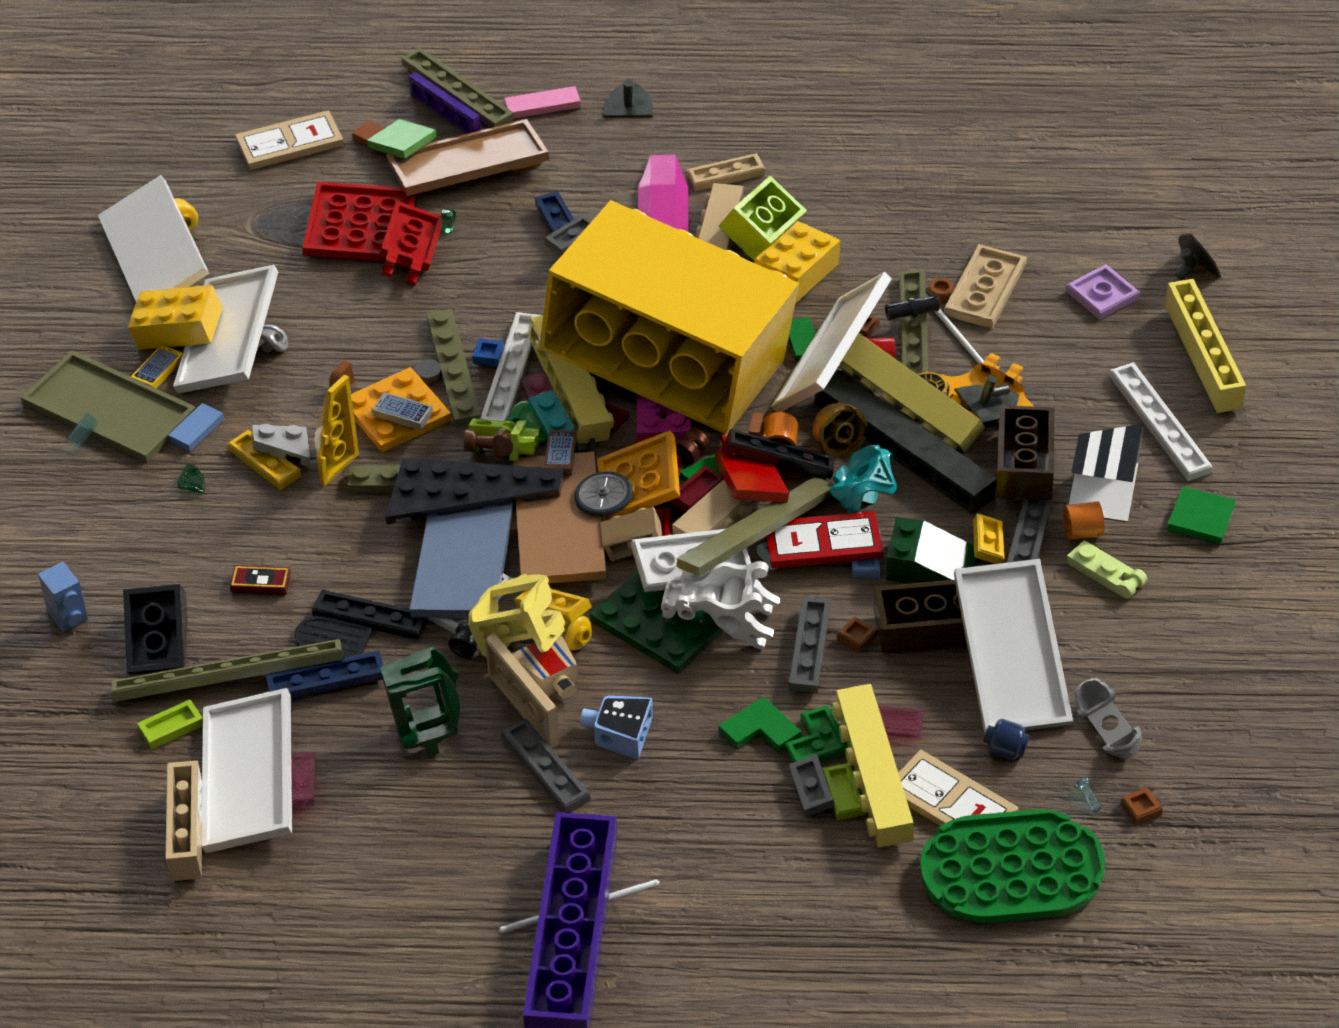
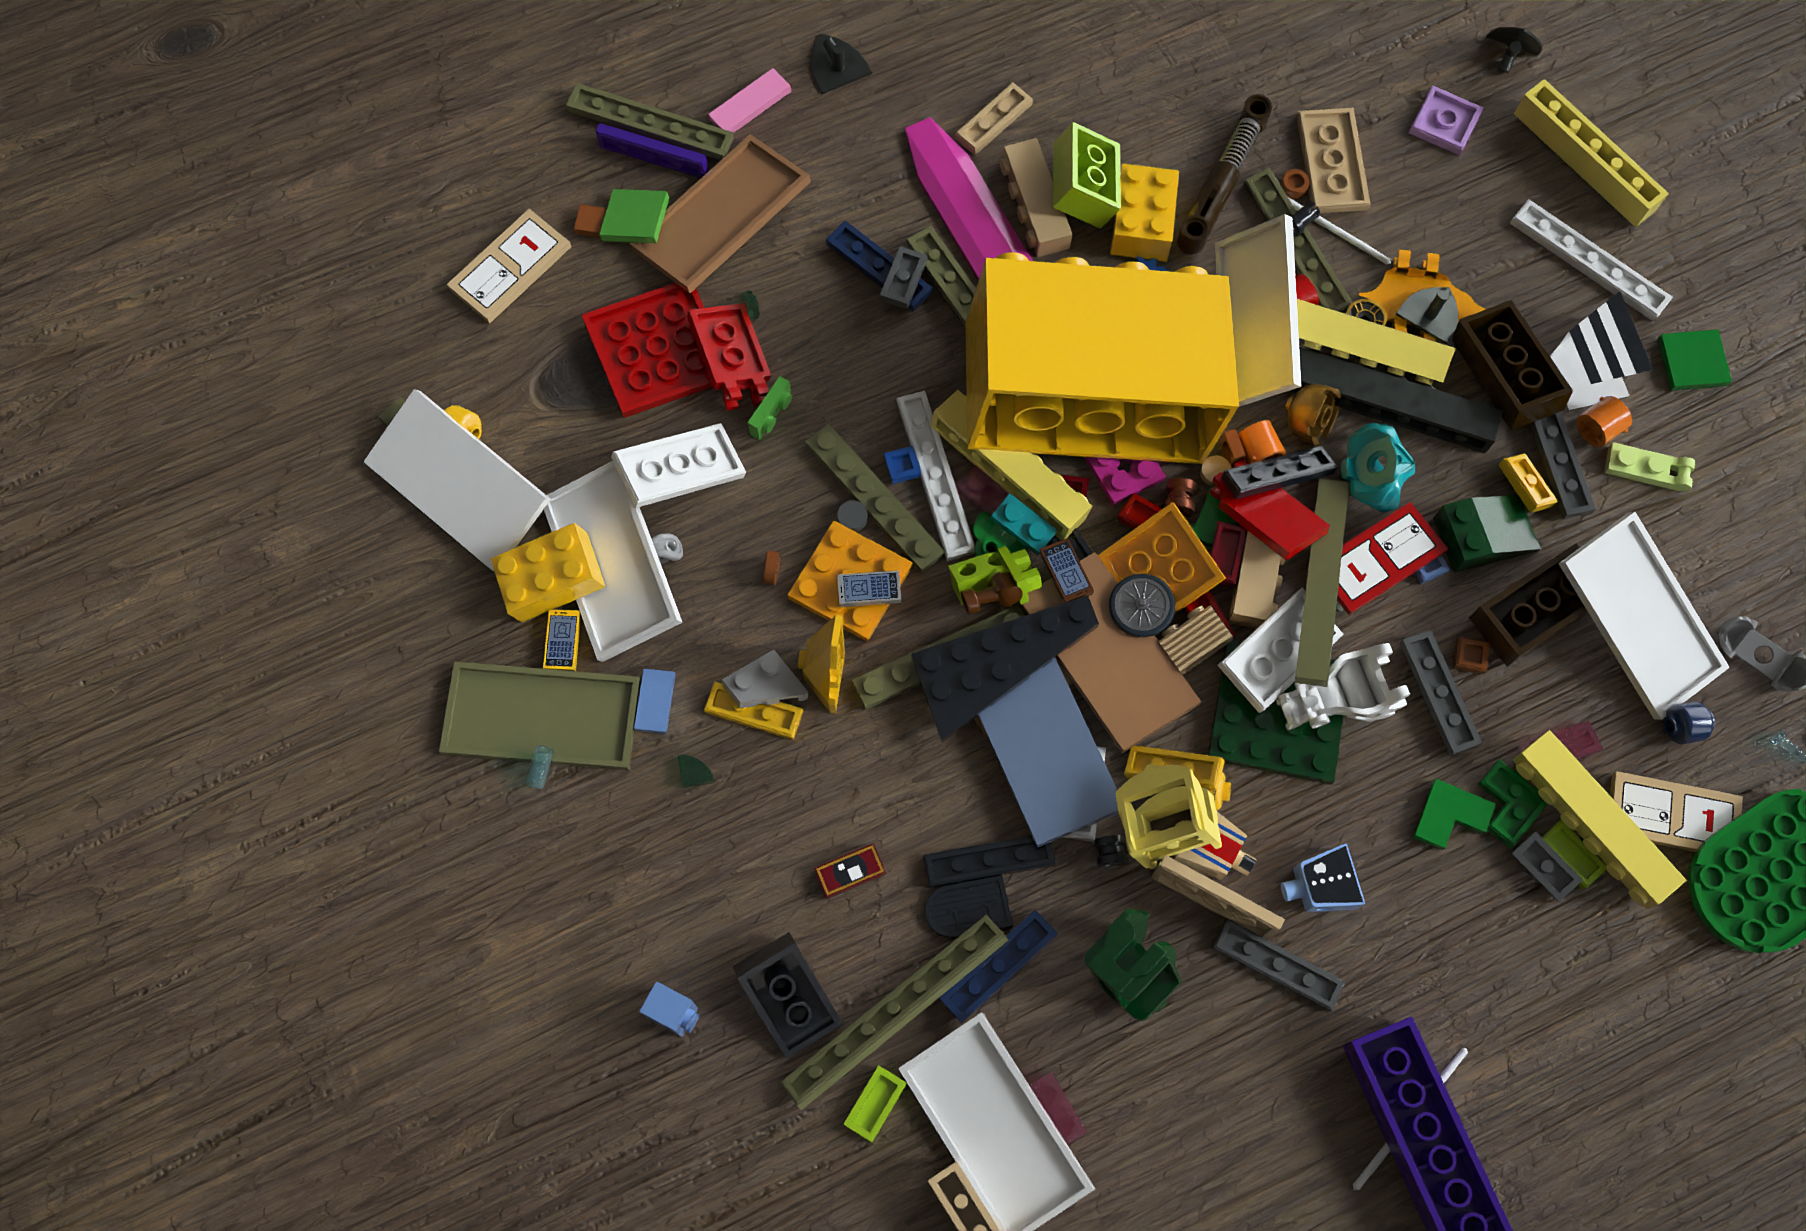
camera: 30 degrees left, 25 degrees up
(318, 289) = (678, 465): none -> white tile
(413, 283) = (765, 415): none -> bright green plate
(834, 285) = (1223, 175): none -> dark brown piece

